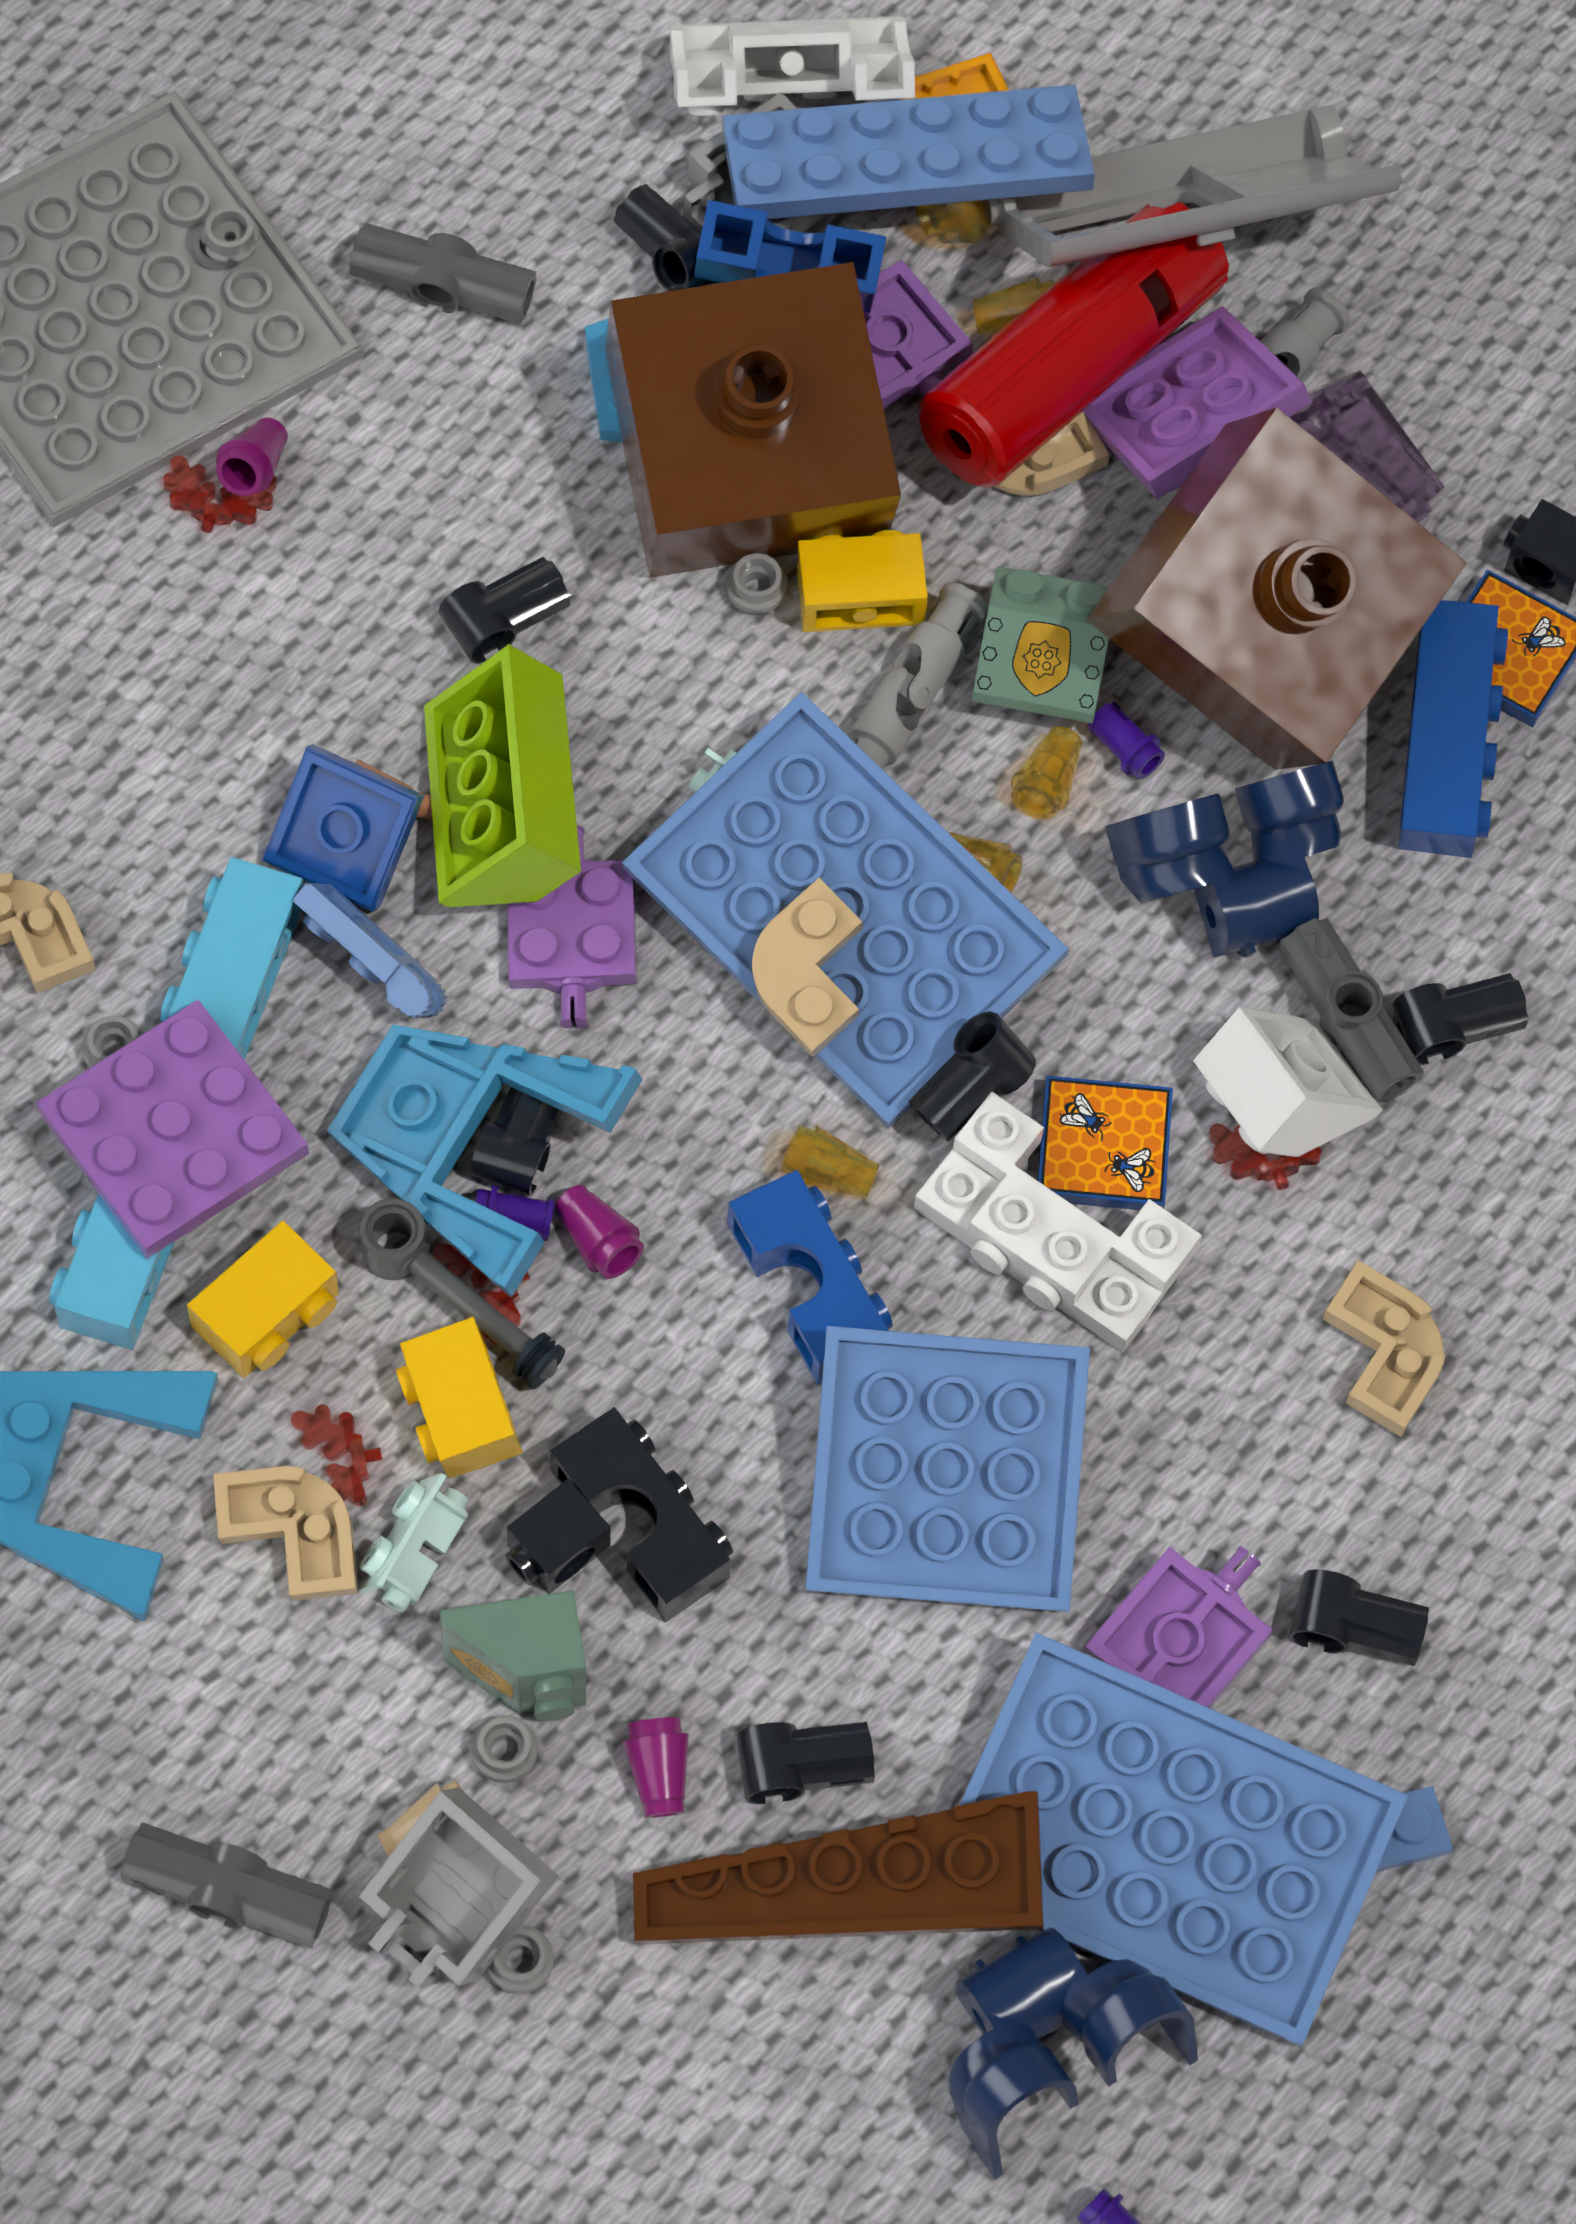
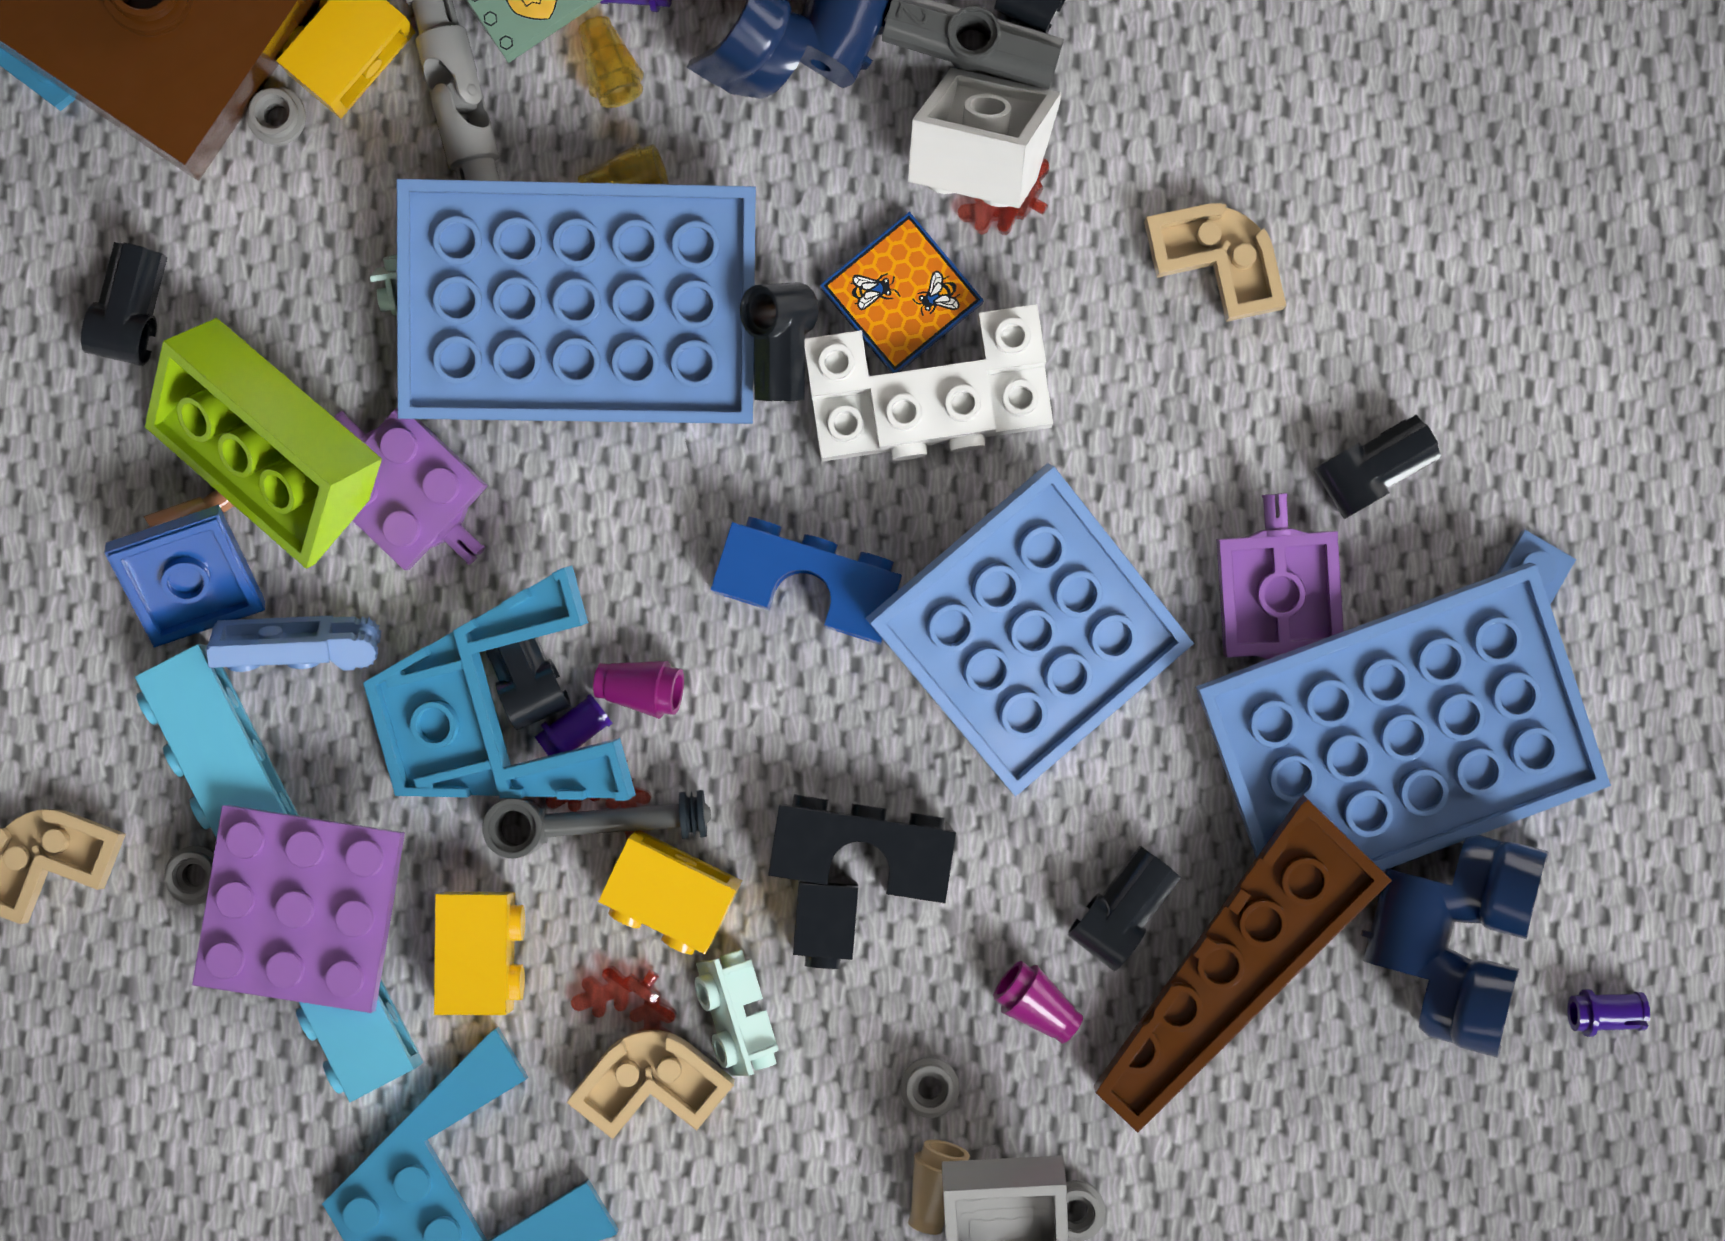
camera: 35 degrees left, 20 degrees up
(521, 1652) = (890, 1029): sand green slope -> none
(789, 964) = (582, 384): tan plate -> none
(829, 1162) = (740, 489): clear yellow cone -> none

